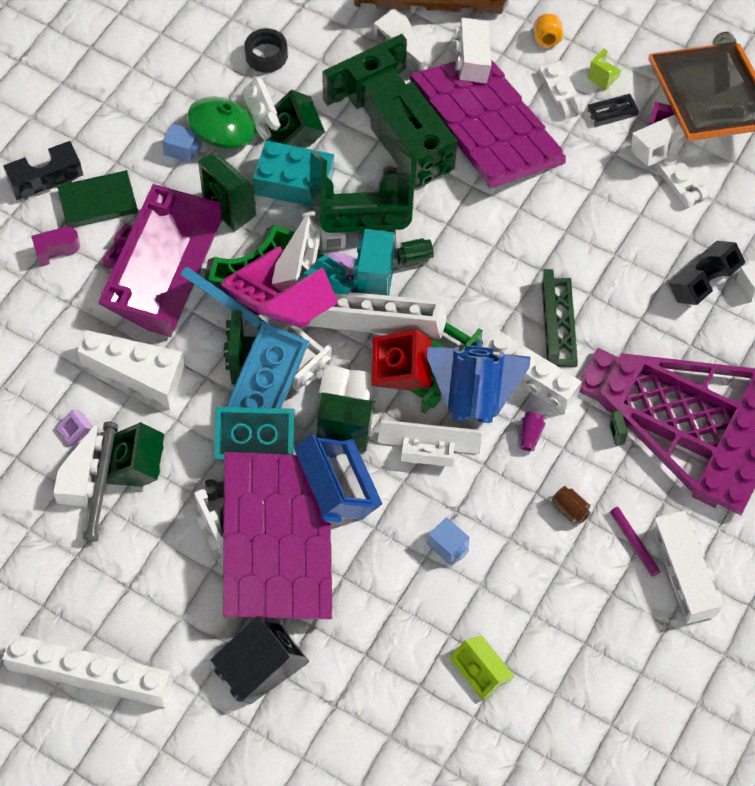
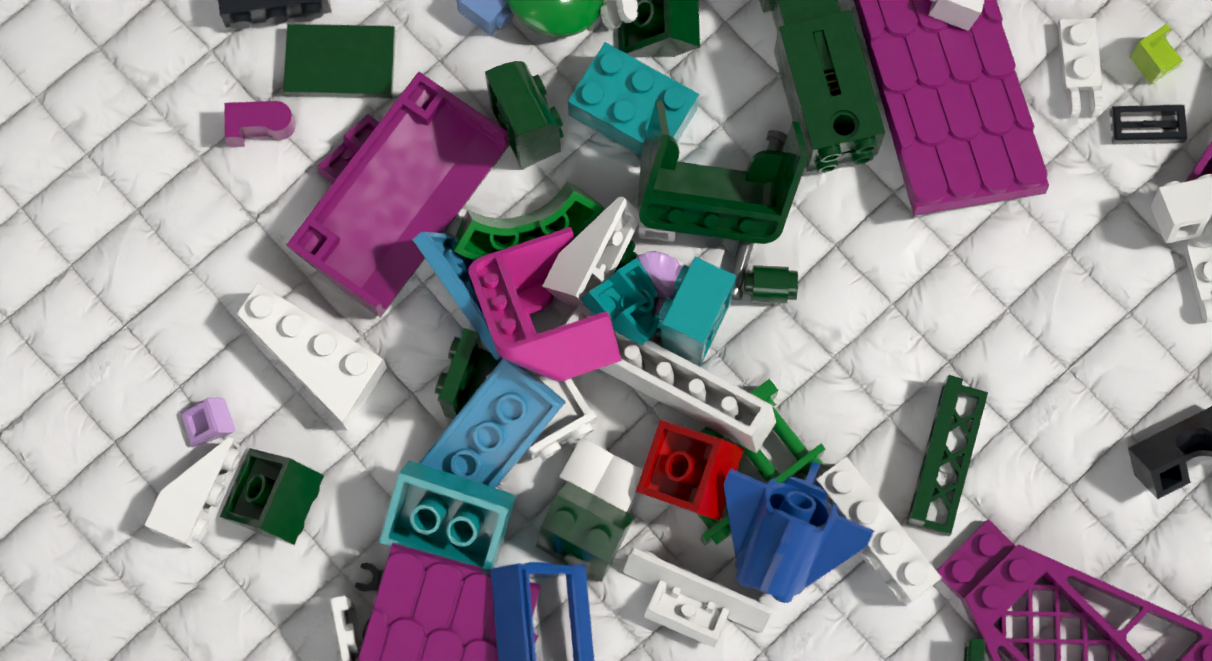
camera: 20 degrees right, 15 degrees up
(94, 516) = (217, 519): dark grey bar -> none
(531, 430) = (846, 623): magenta cone -> none

